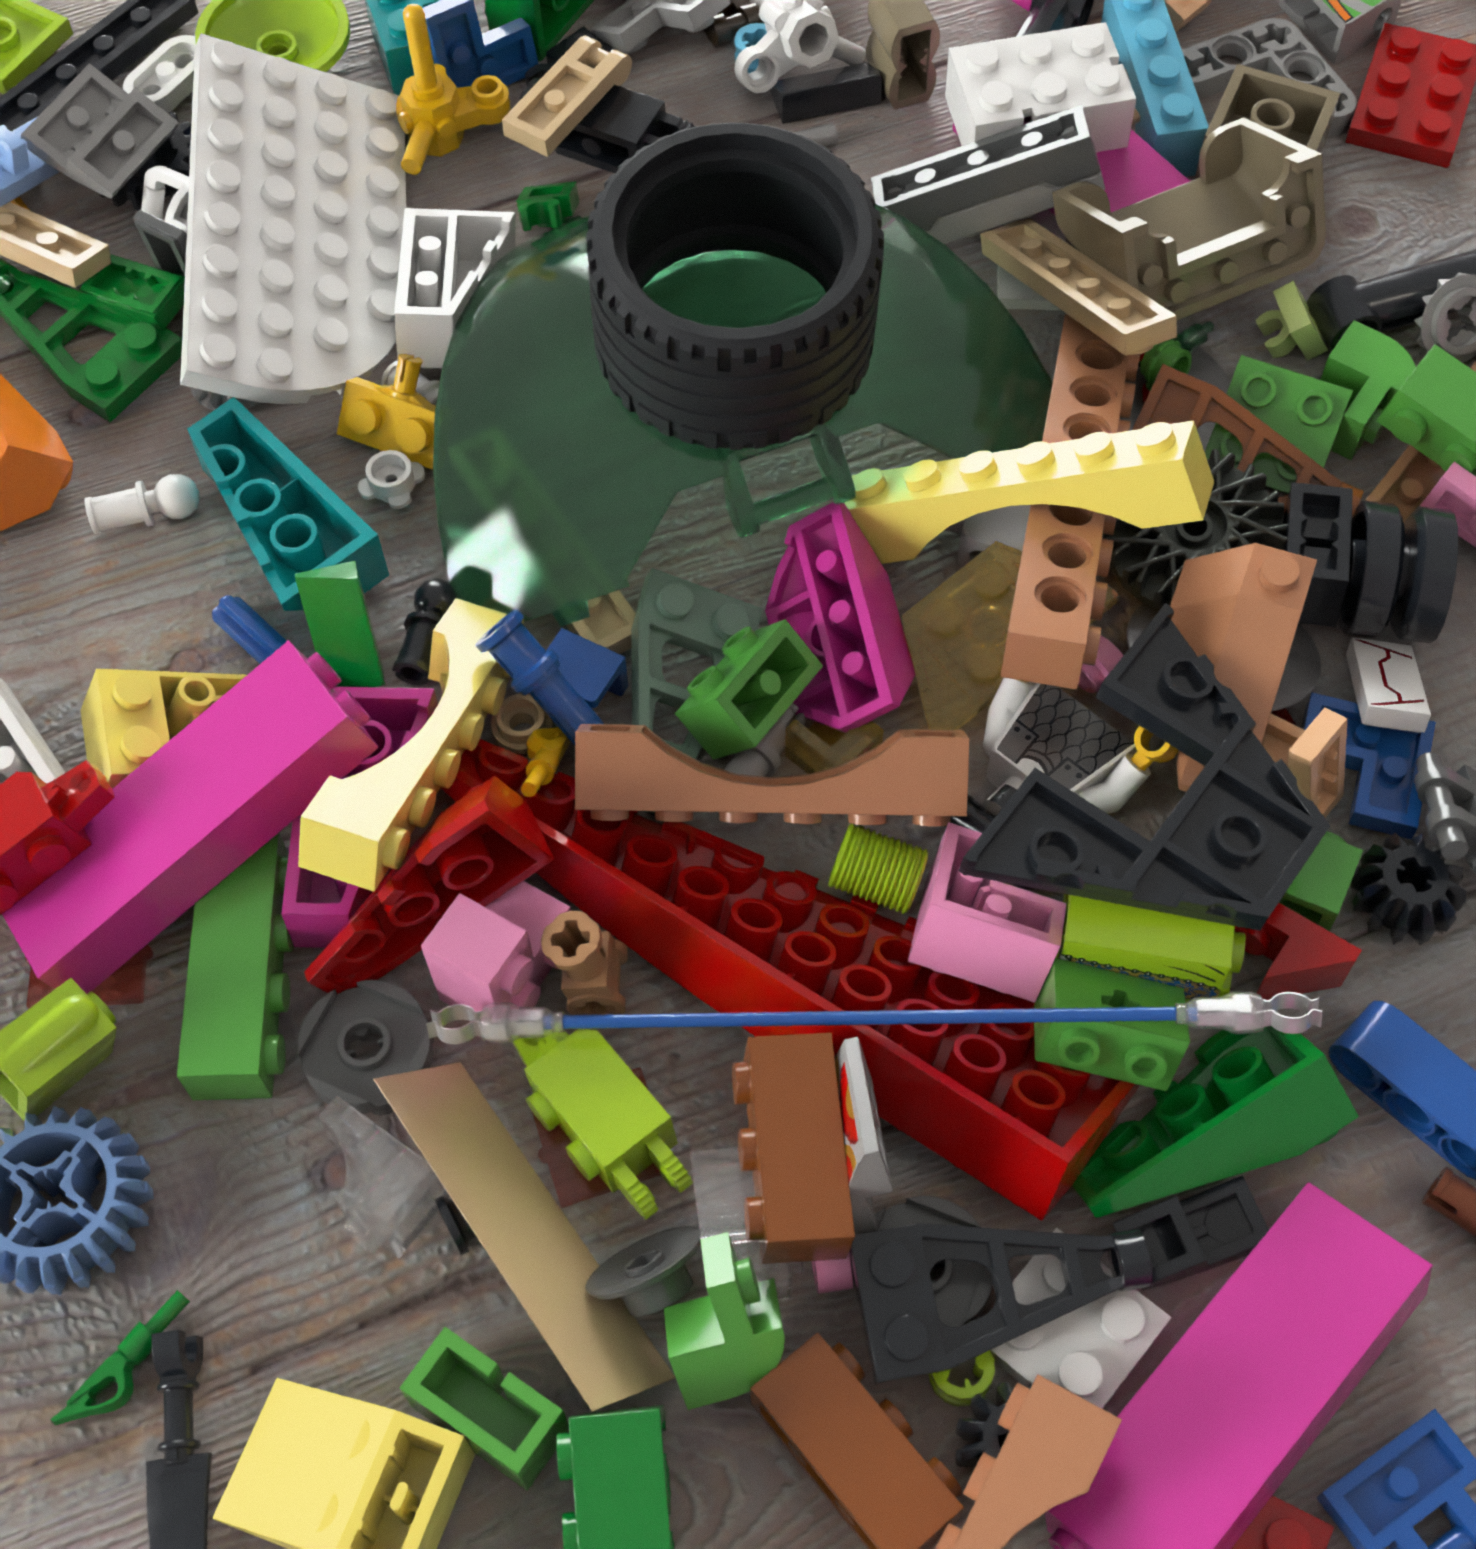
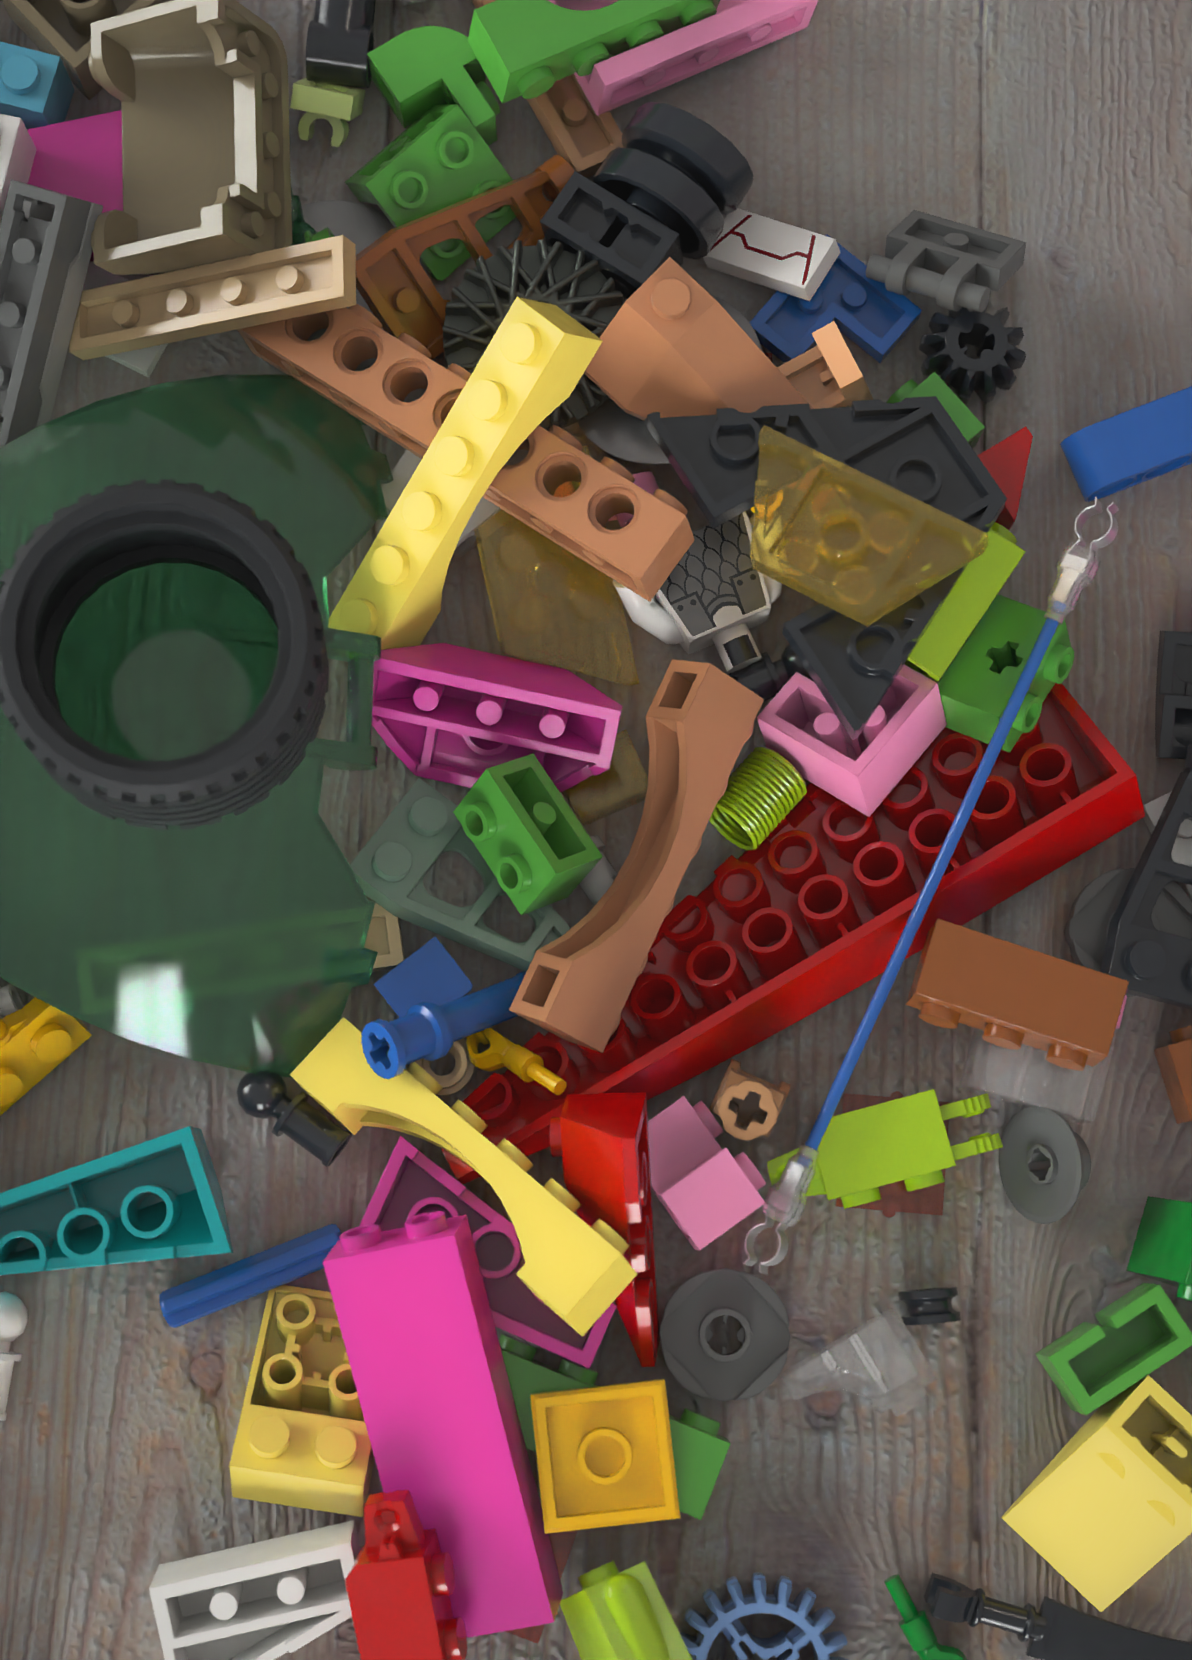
camera: 70 degrees left, 20 degrees up
(205, 960) = (605, 1456): none -> yellow plate
(341, 623) = (269, 1200): green slope -> none
(386, 467) = (64, 1082): white plate -> none
(524, 1233) = (960, 1260): tan sticker -> none
(730, 1336) = (1137, 1122): bright green brick -> none
(862, 1135) = (1030, 931): light grey slope -> none
(1148, 783) = (849, 534): none -> clear yellow wing
(1235, 1112) = (1116, 626): green wedge -> none

